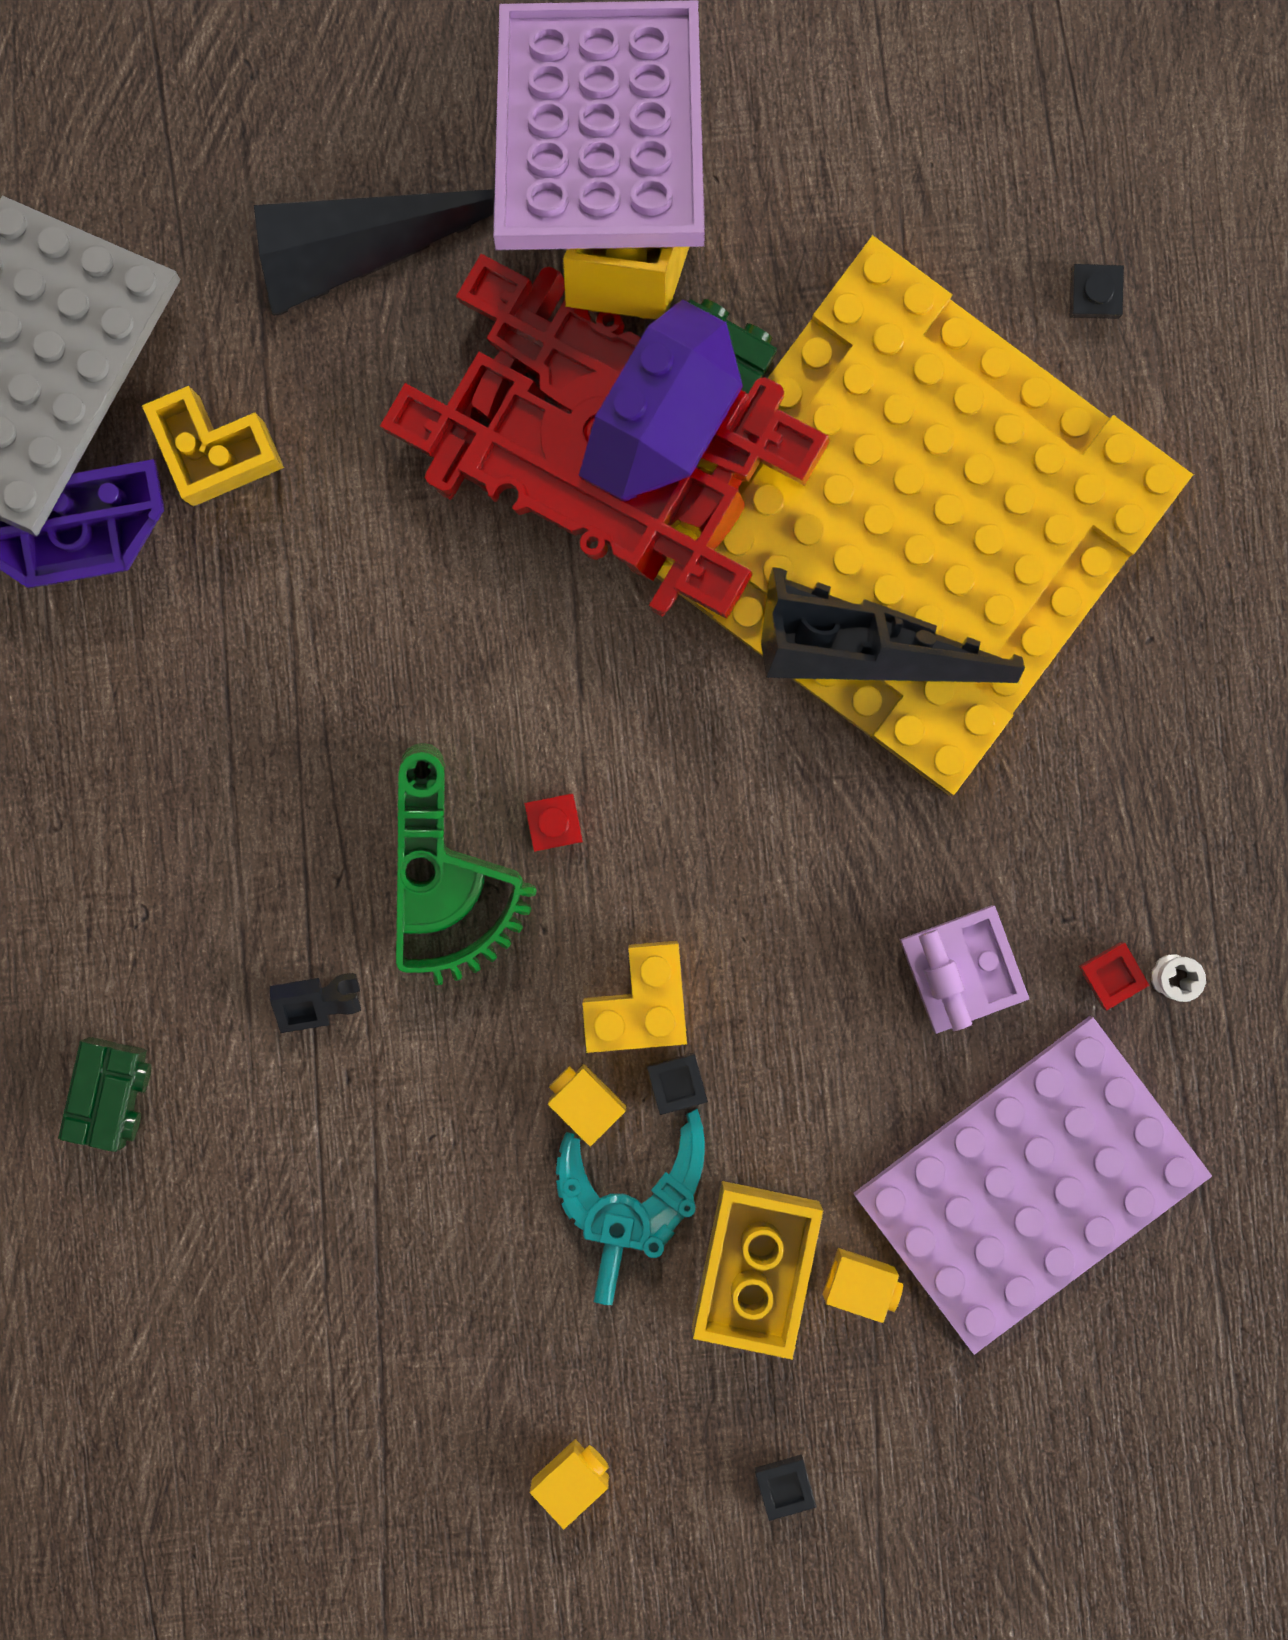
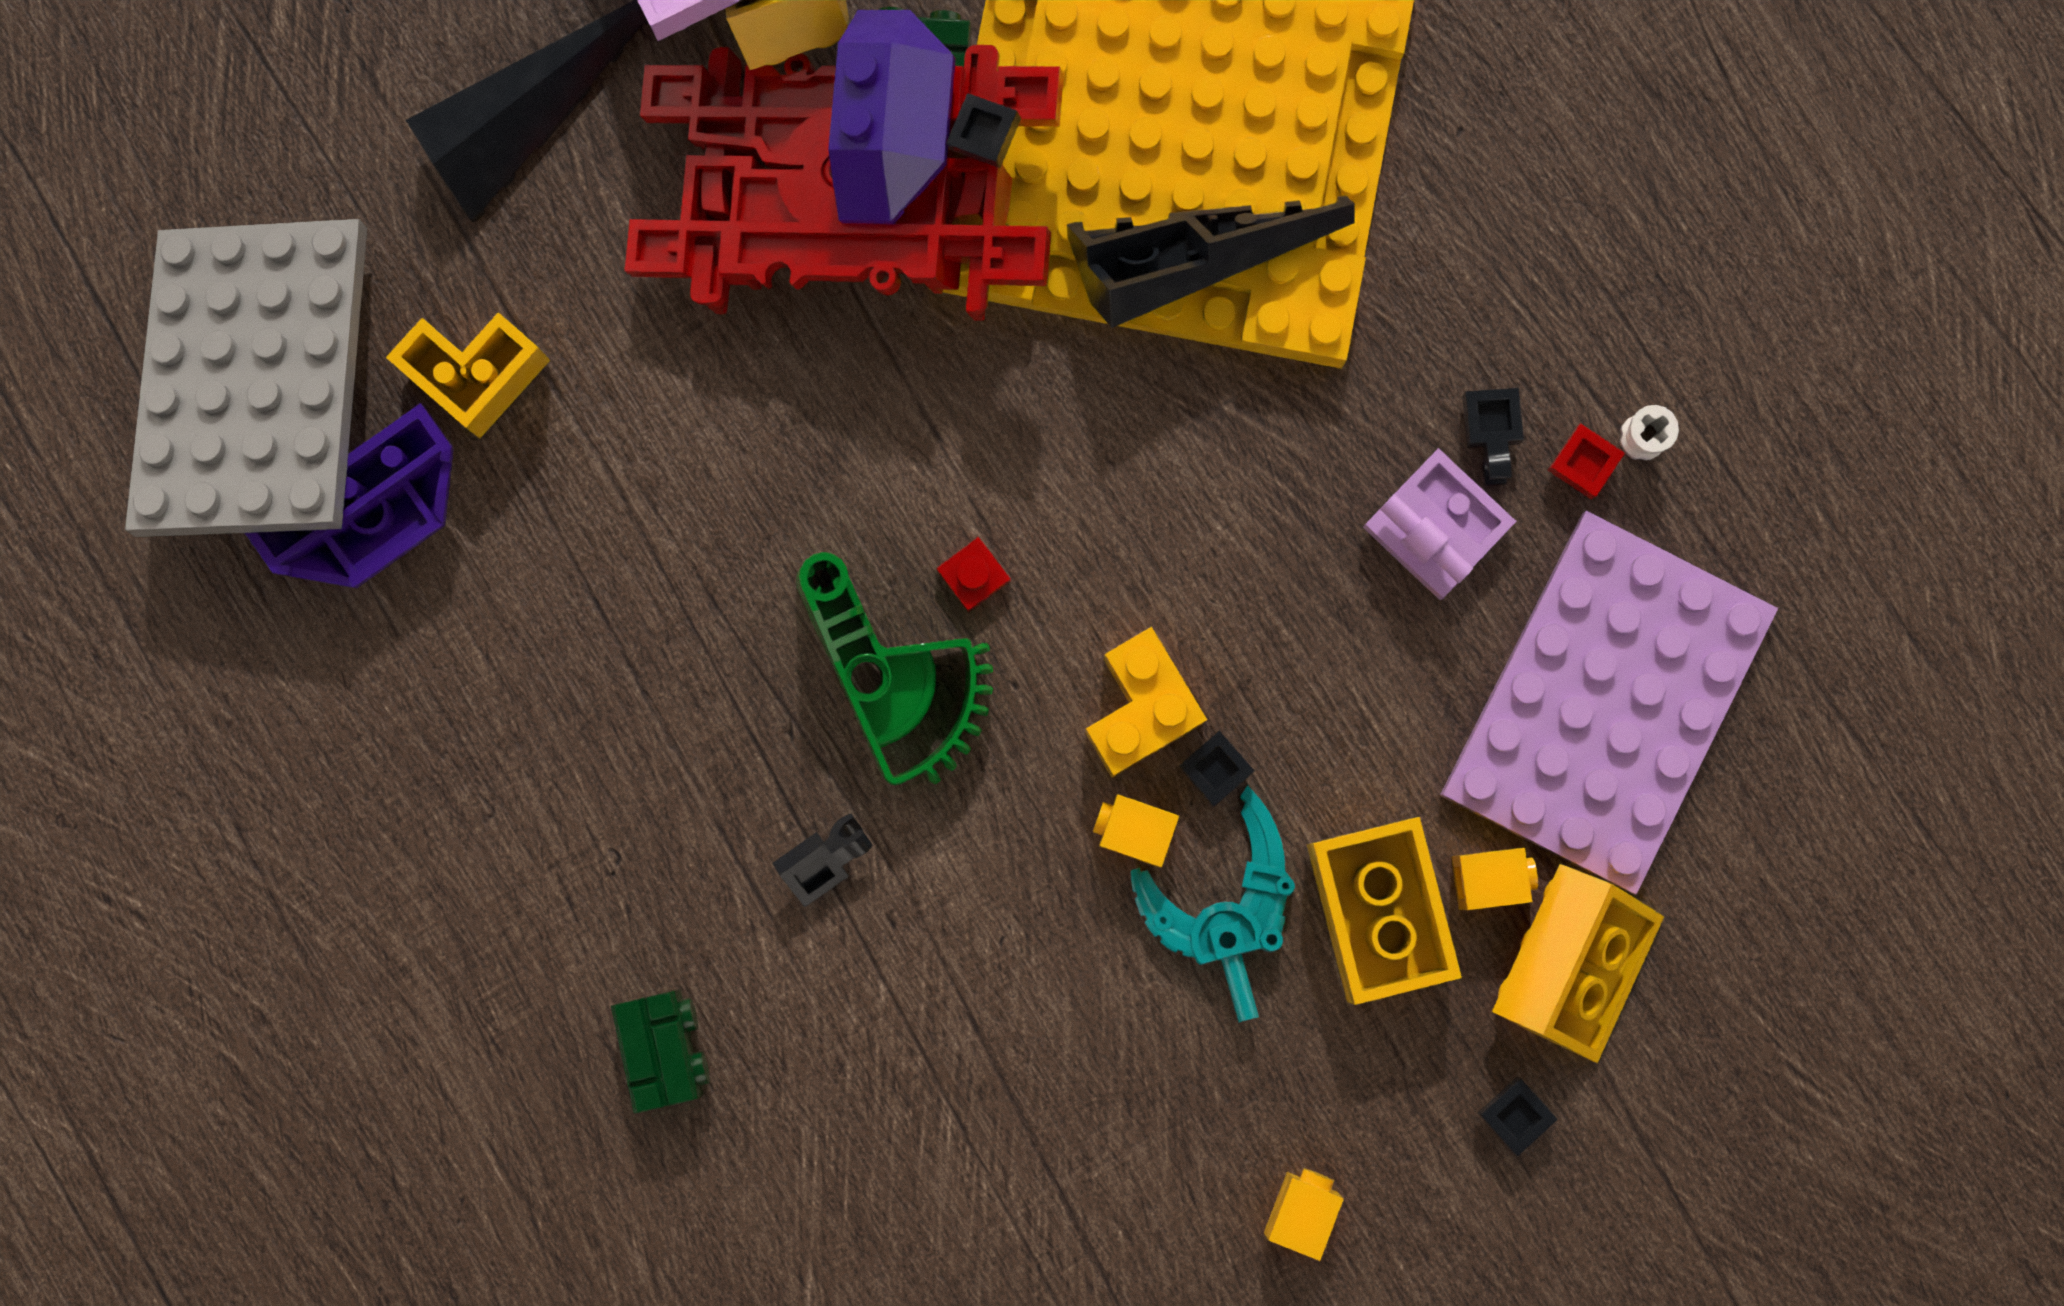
camera: 20 degrees left, 5 degrees down
(736, 461) = (983, 130): none -> black plate
(896, 1388) = (1578, 962): none -> yellow slope
(1052, 906) = (1493, 423): none -> black plate

